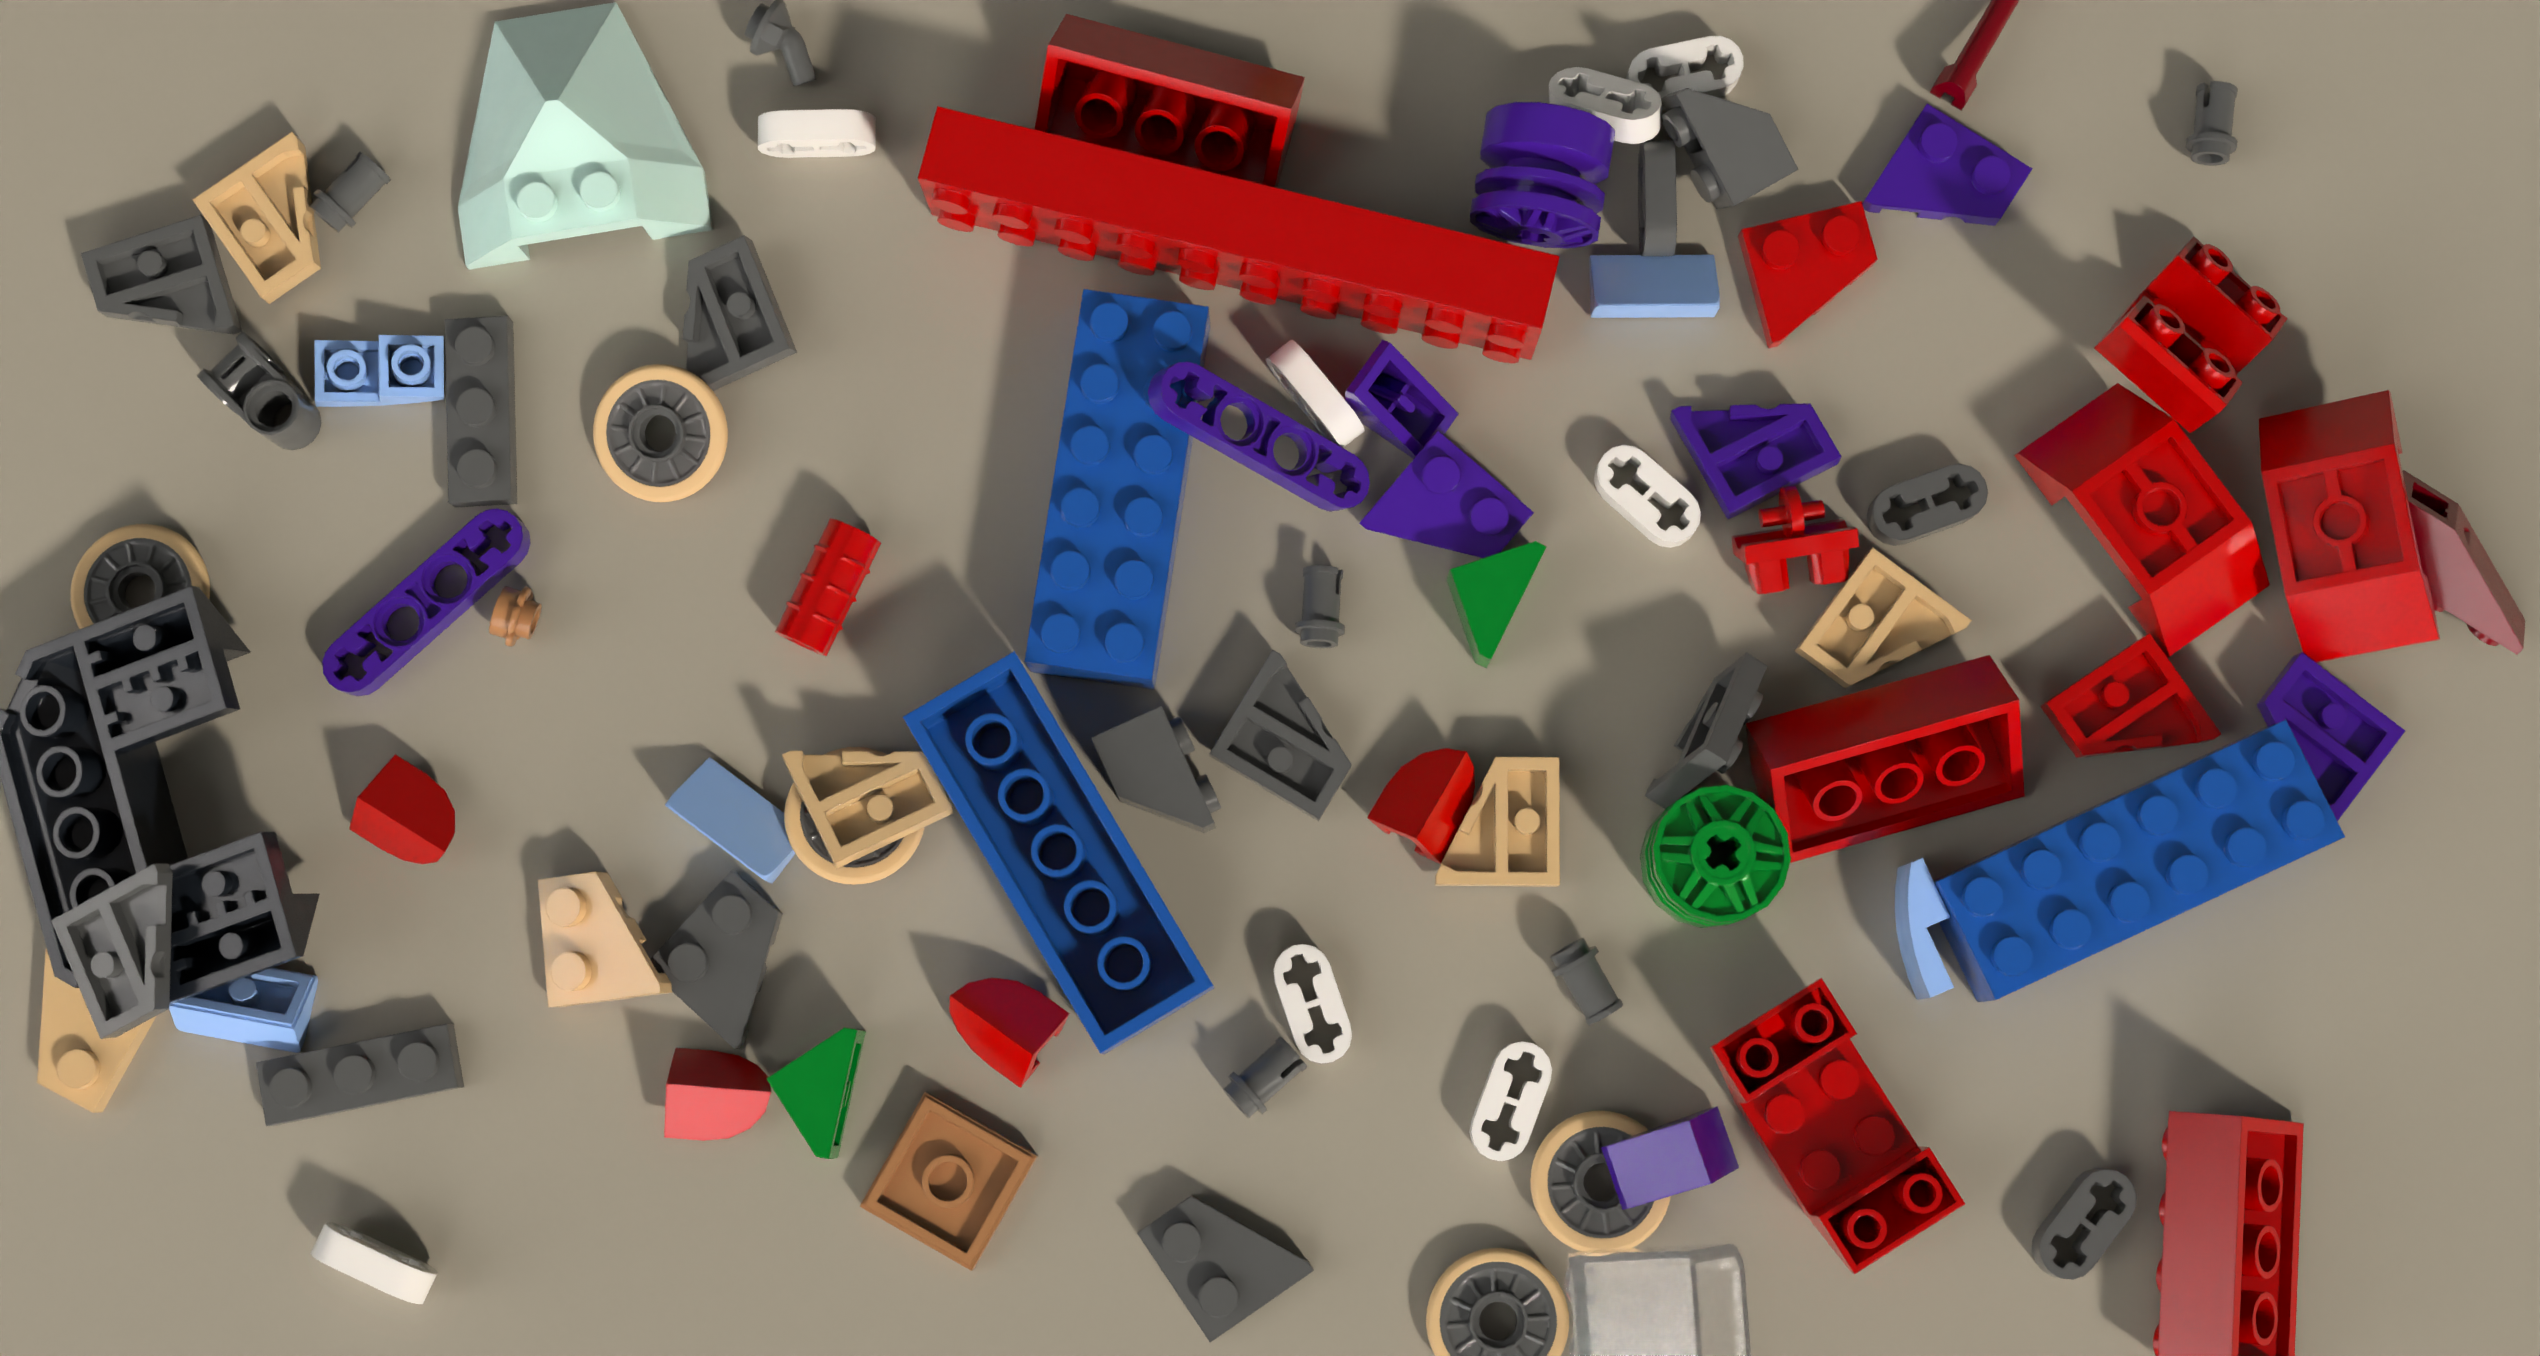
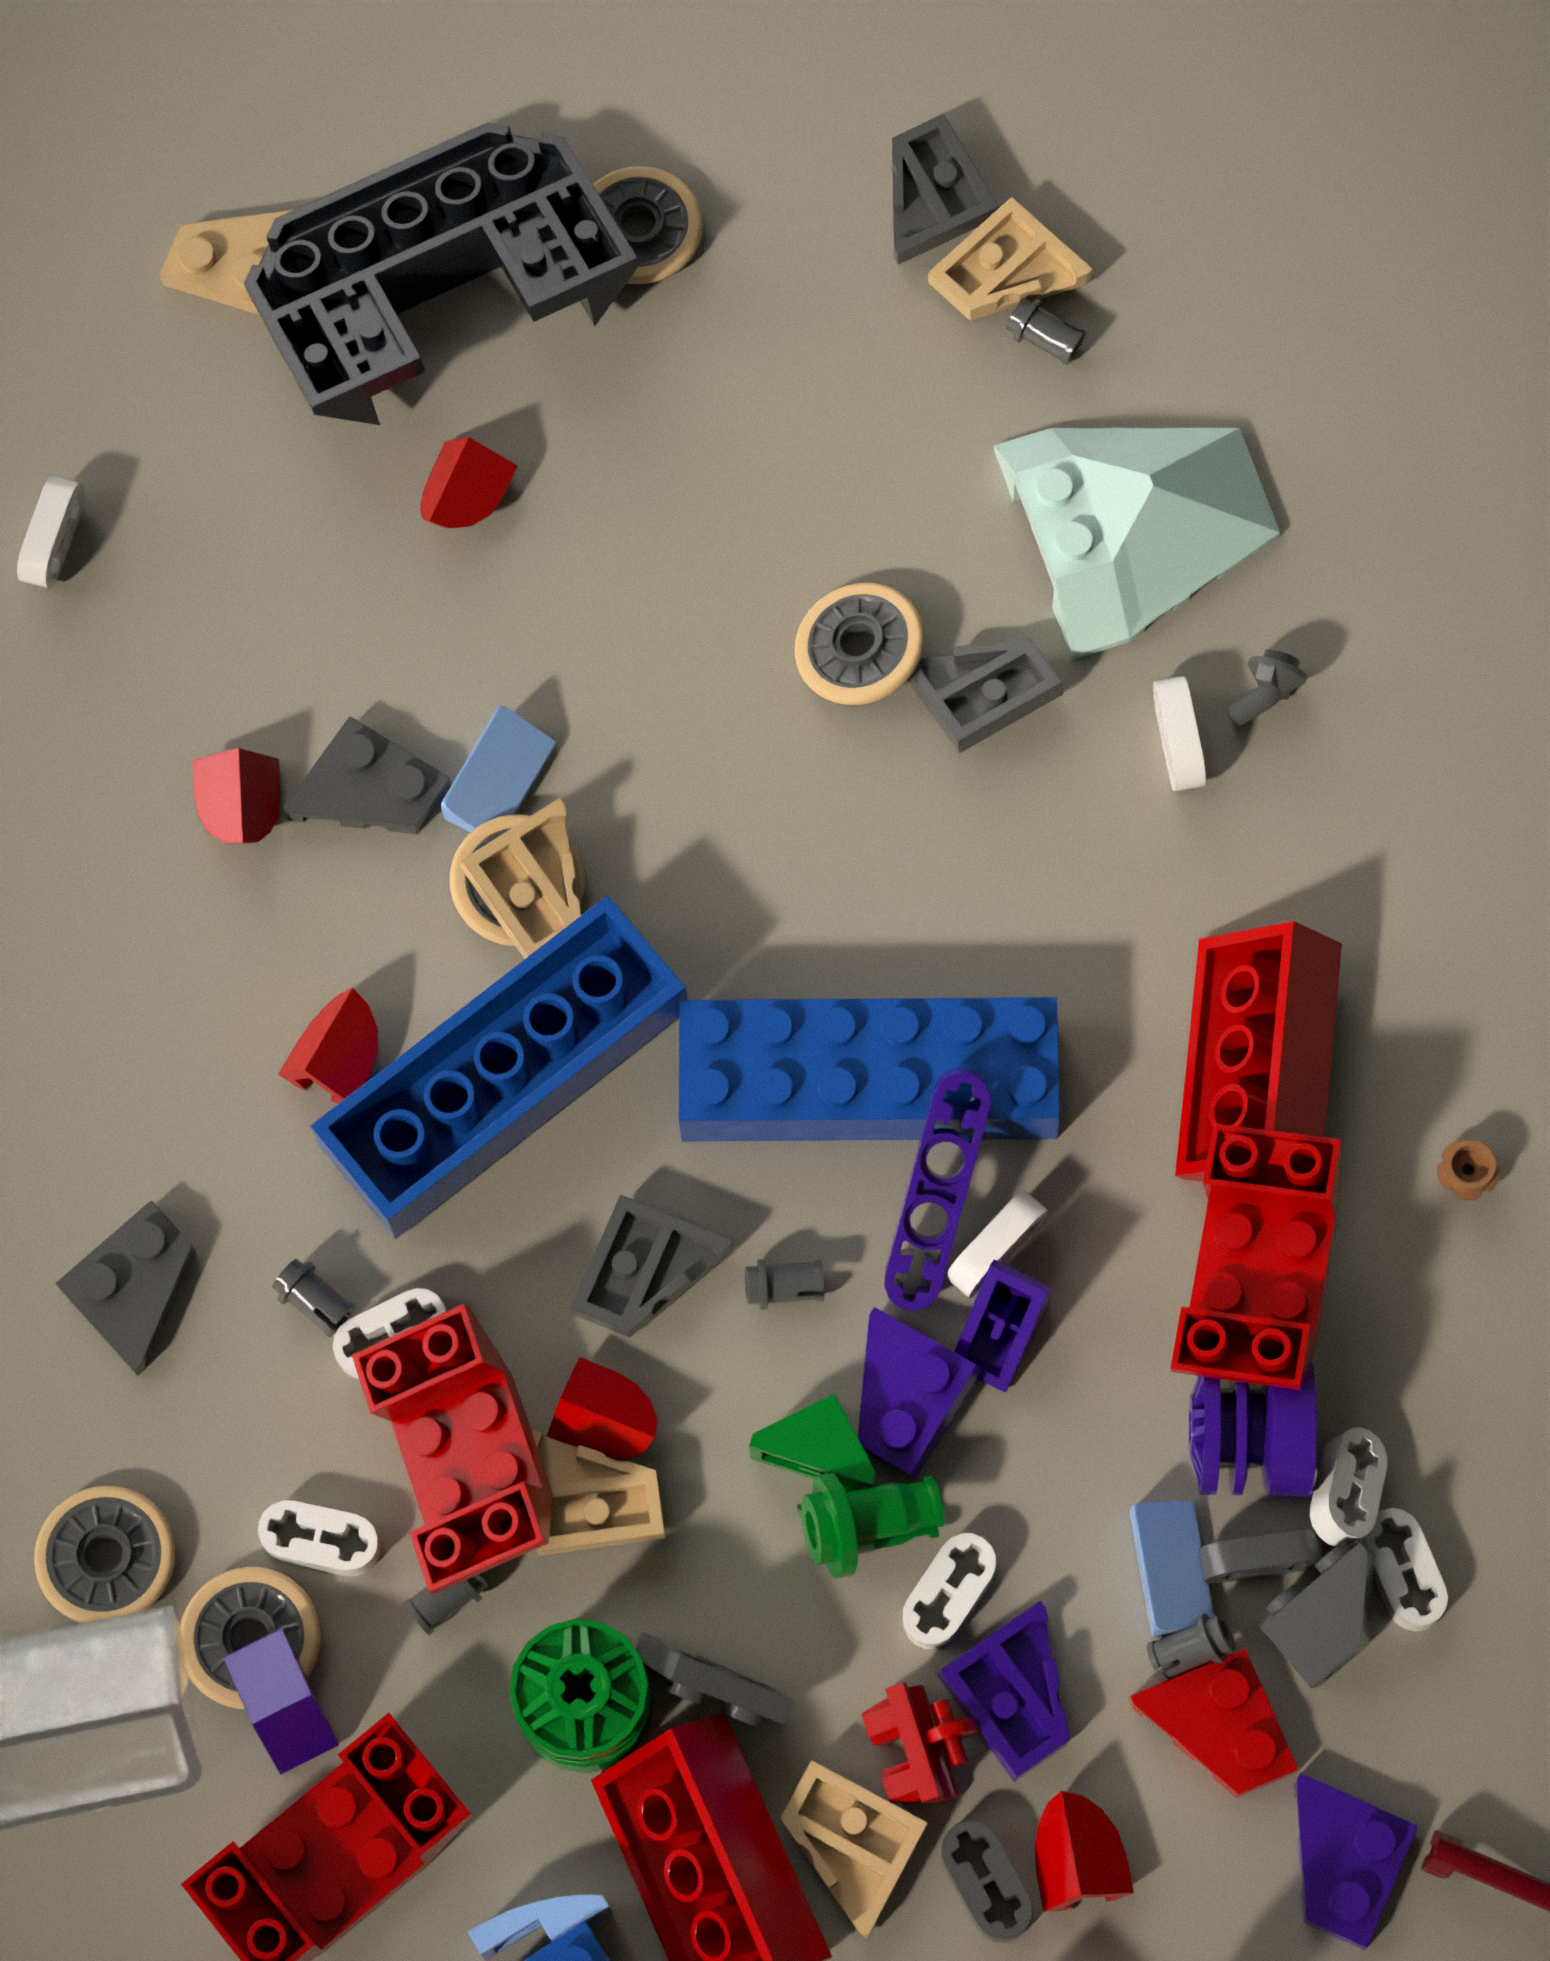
camera: 85 degrees right, 10 degrees down
(122, 950) = (300, 265): dark grey wing -> none
(257, 388) = (842, 282): dark grey piece -> none
(257, 1010) = (269, 397): light blue slope -> none
(359, 1074) = (221, 492): dark grey plate -> none
(379, 372) = (879, 387): light blue slope -> none
(433, 610) = (660, 474): dark purple beam -> none
(480, 411) = (856, 483): dark grey plate -> none
(515, 615) = (664, 546): medium nougat plate -> none
(592, 943) = (365, 667): tan wing -> none
(819, 1090) = (250, 890): green slope -> none
(828, 587) = (732, 818): red axle -> none
(948, 1181) = (182, 1023): medium nougat tile -> none
(1151, 770) = (595, 1145): dark grey slope -> none
(1236, 235) = (1139, 1150): red brick -> none
(1390, 136) = (1261, 1257): none -> red slope
(1456, 943) = (461, 1445): none -> red slope
(1576, 576) = (859, 1520): none -> green piece
(1736, 276) = (1192, 1647): none -> dark grey pin
(1917, 415) = (1078, 1854): none -> red brick

